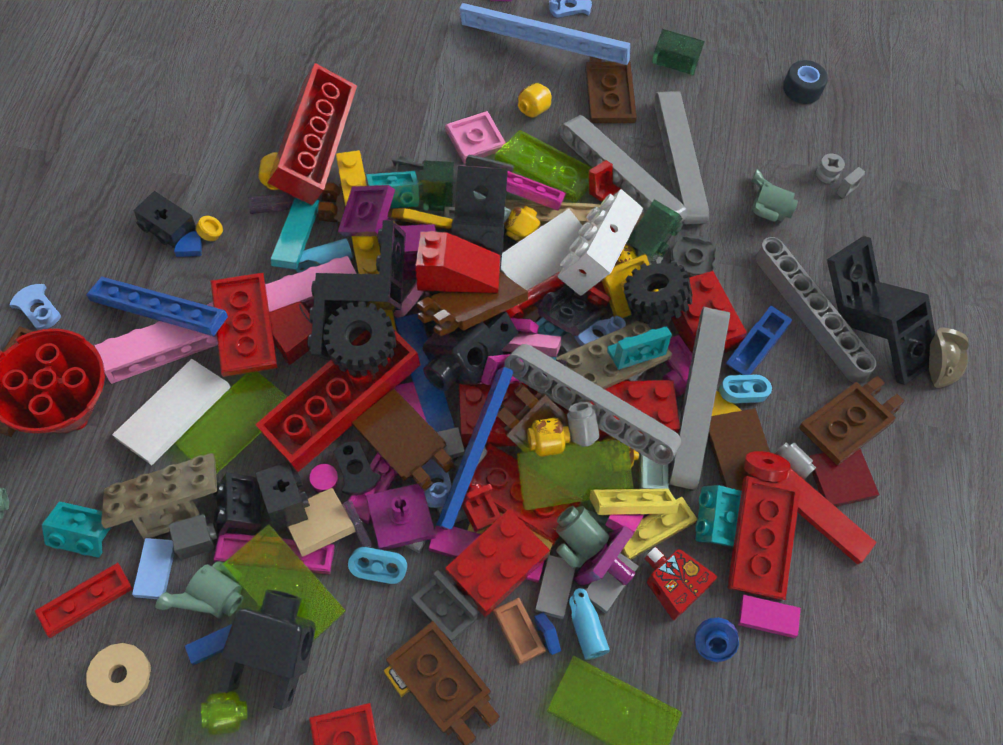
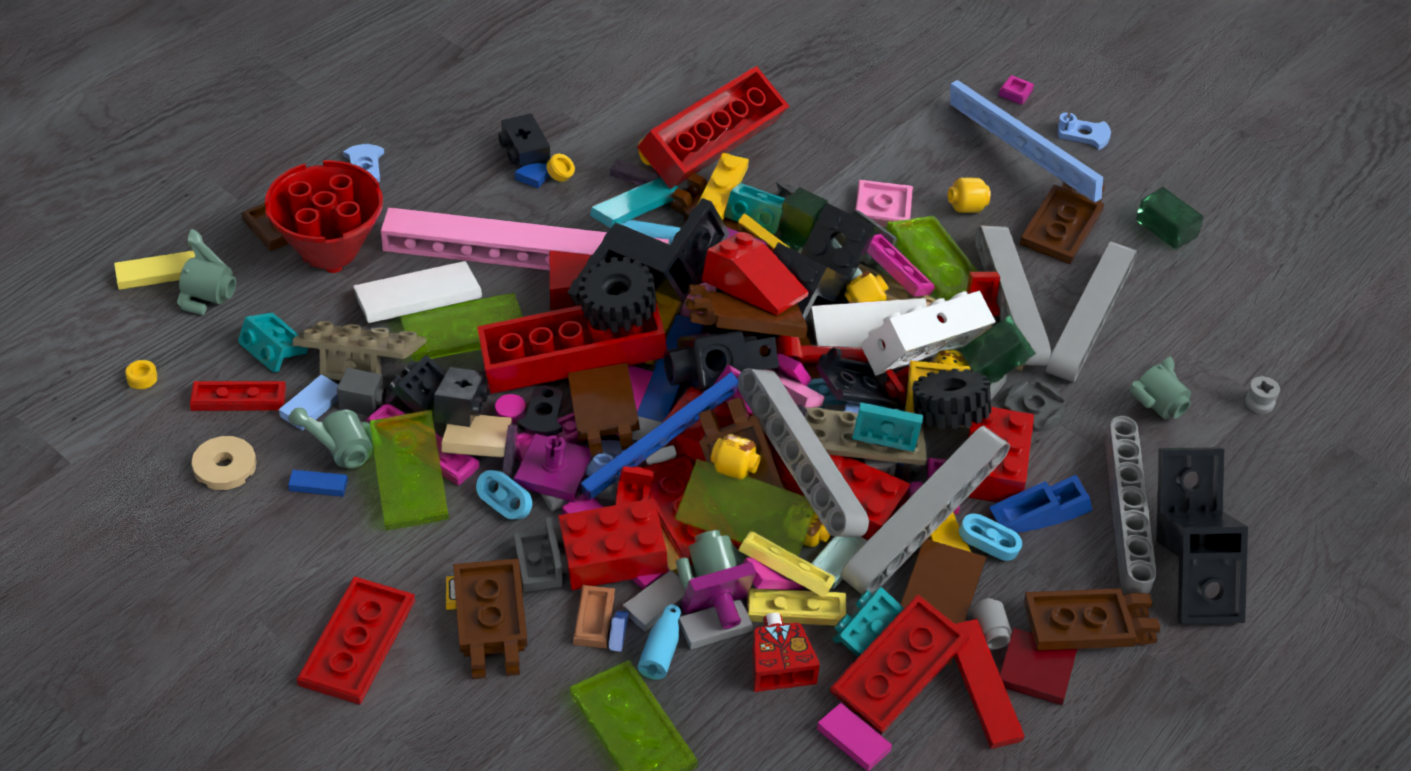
camera: 35 degrees right, 15 degrees down
(157, 306) = (465, 202): blue tile -> none
(223, 713) = (285, 531): clear neon green head -> none
(247, 333) = (528, 248): red tile -> none
(269, 640) = (367, 492): black piece -> none
(366, 210) = (722, 195): magenta tile -> none
(583, 424) = (775, 459): light grey brick -> none
(716, 639) = (779, 719): blue plate -> none
(767, 466) = (949, 601): red piece -> none
(805, 81) = (1300, 304): black wheel -> none
(851, 182) = (1274, 416): light grey tile -> none
(948, 356) = (1253, 617): dark tan hat -> none

